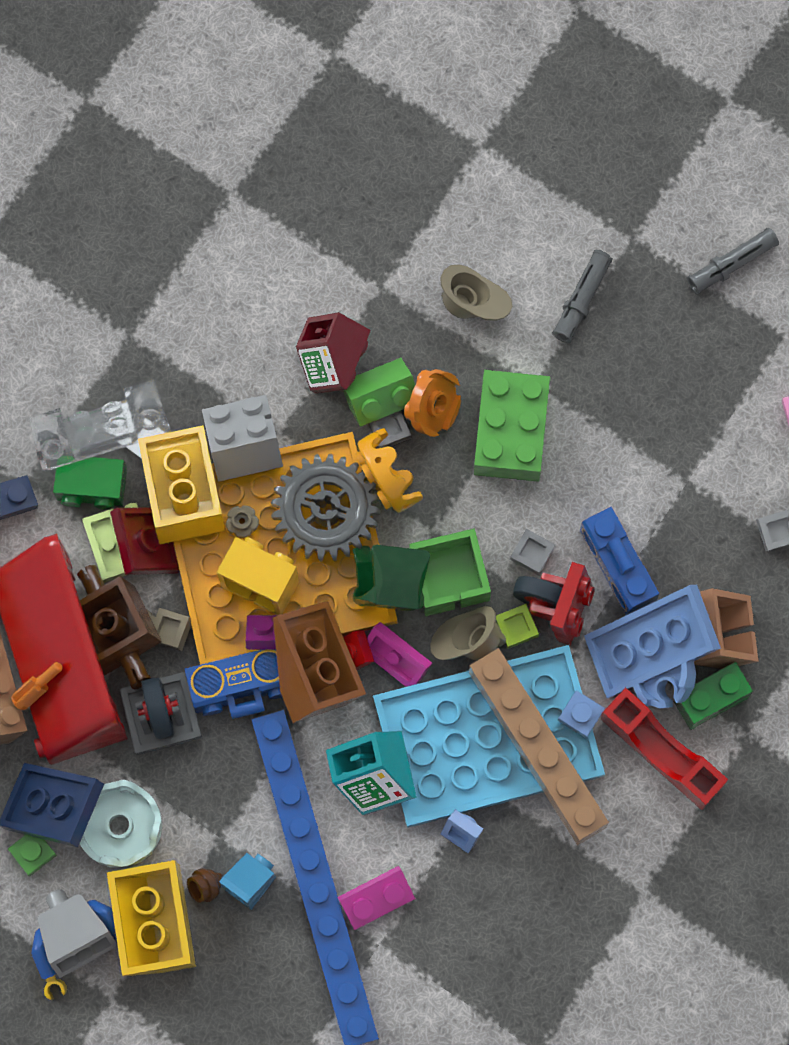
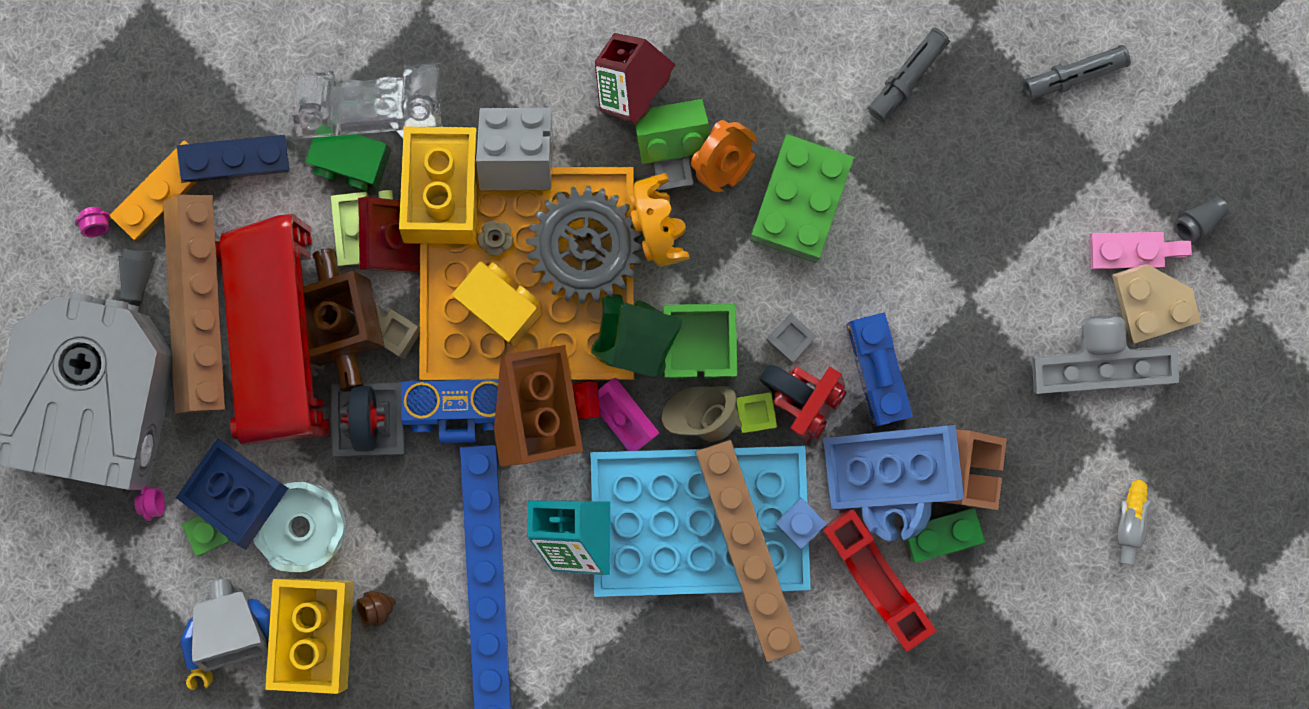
camera: 10 degrees right, 10 degrees up
(34, 687) = (237, 370): orange axle -> none
(248, 879) = (418, 616): dark azure slope -> none
(260, 632) = (486, 360): magenta plate -> none
(376, 897) = (546, 662): dark pink plate -> none
(462, 830) = (650, 614): medium blue plate -> none
(472, 295) = (793, 48): dark tan piece -> none

